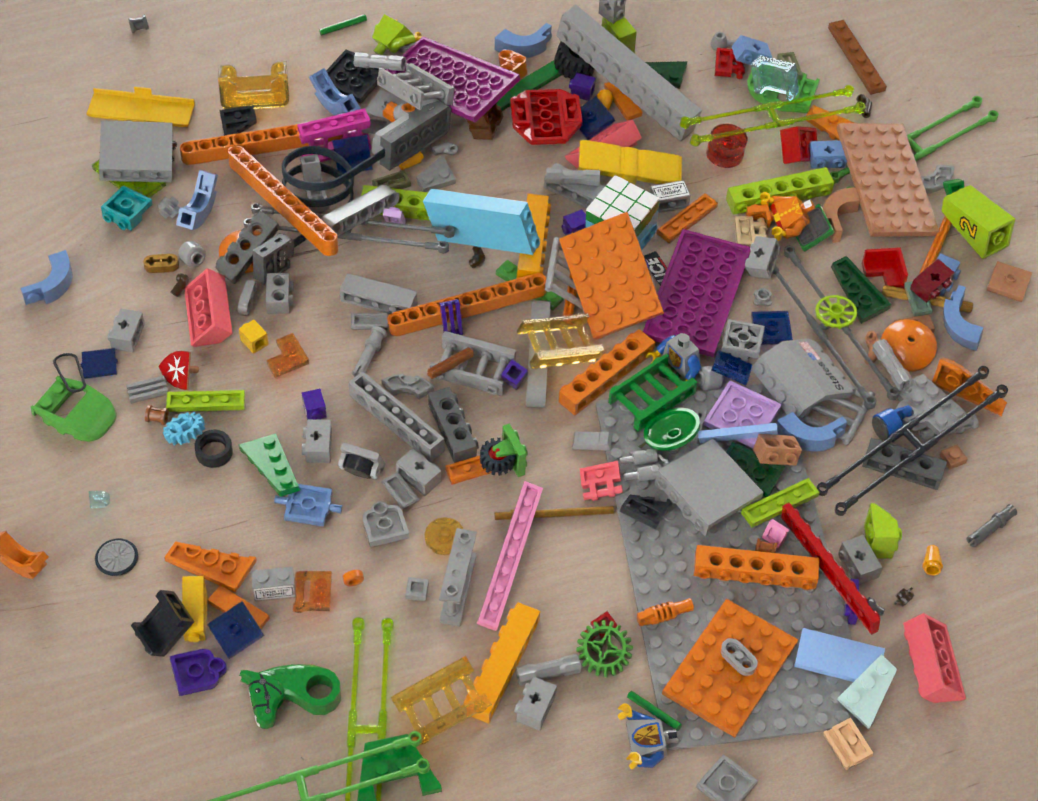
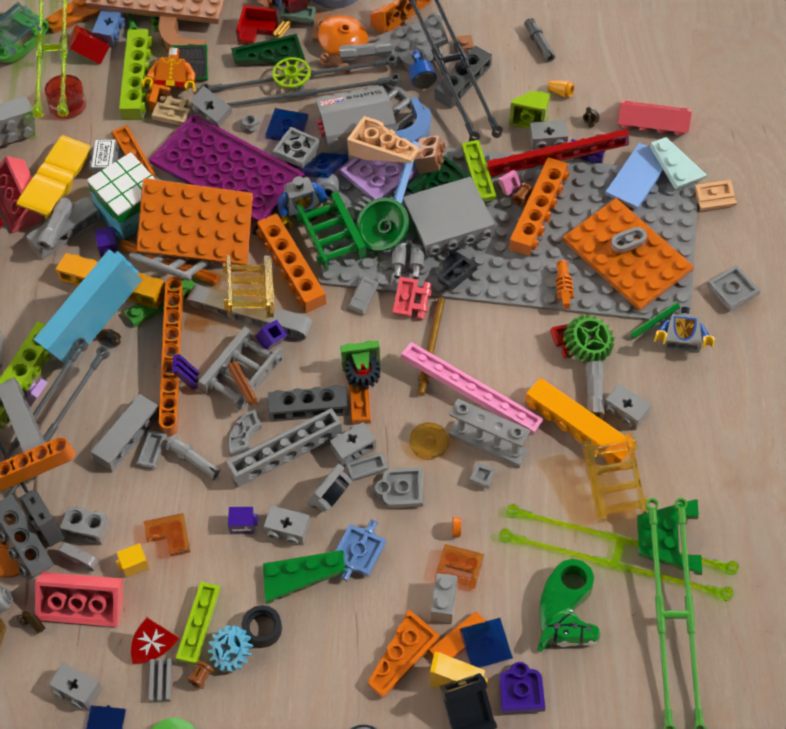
camera: 70 degrees left, 5 degrees up
(765, 396) = (377, 143): none -> light nougat wedge

